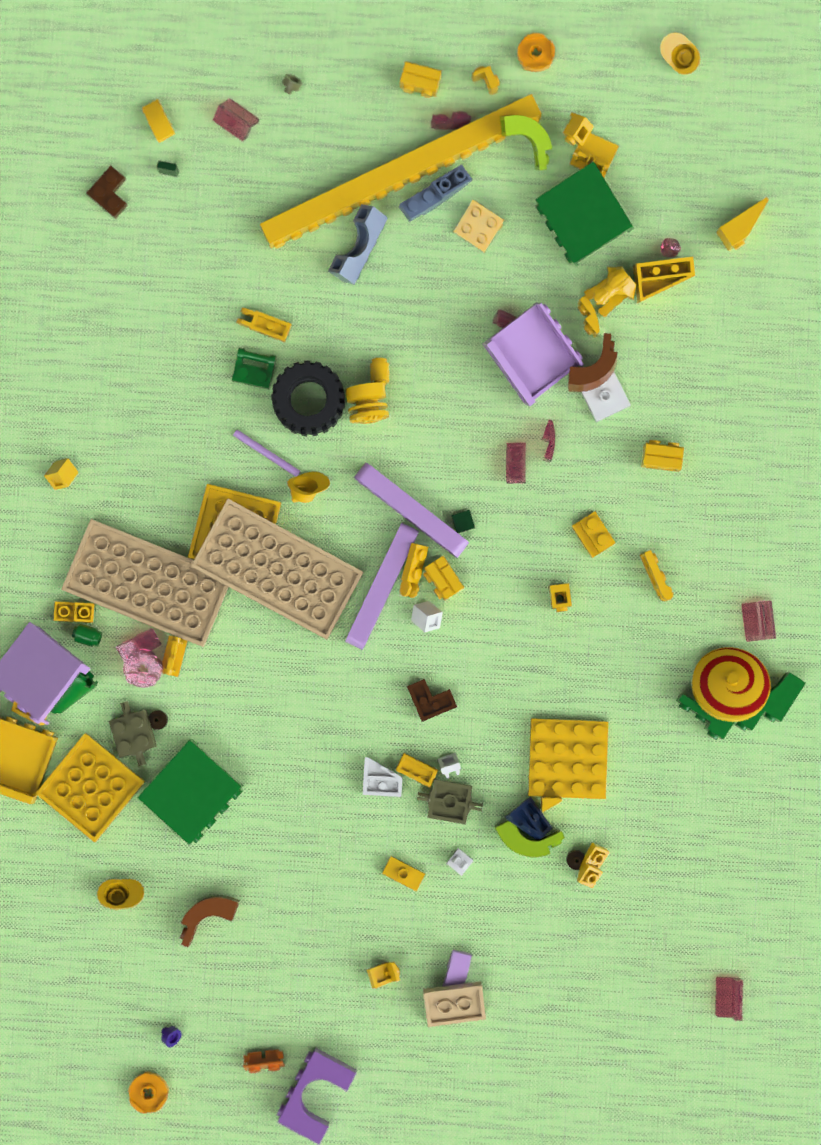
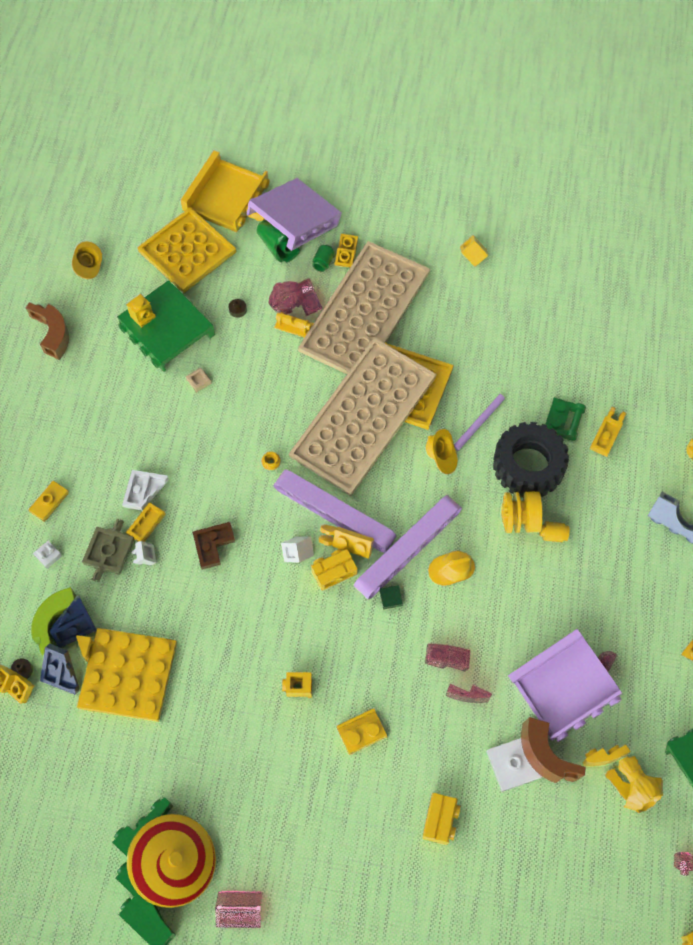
camera: 100 degrees right, 20 degrees down
(133, 733) = (228, 286): olive plate -> none
(184, 818) = (140, 310): none -> yellow brick
(249, 746) = (198, 380): none -> tan tile
(340, 657) = (271, 456): none -> yellow plate
(426, 467) = (451, 568): none -> yellow piece
(576, 821) = (58, 669): none -> dark blue wing
(656, 576) = (305, 795): yellow hinge -> none
(661, 275) = (651, 843): yellow wedge -> none

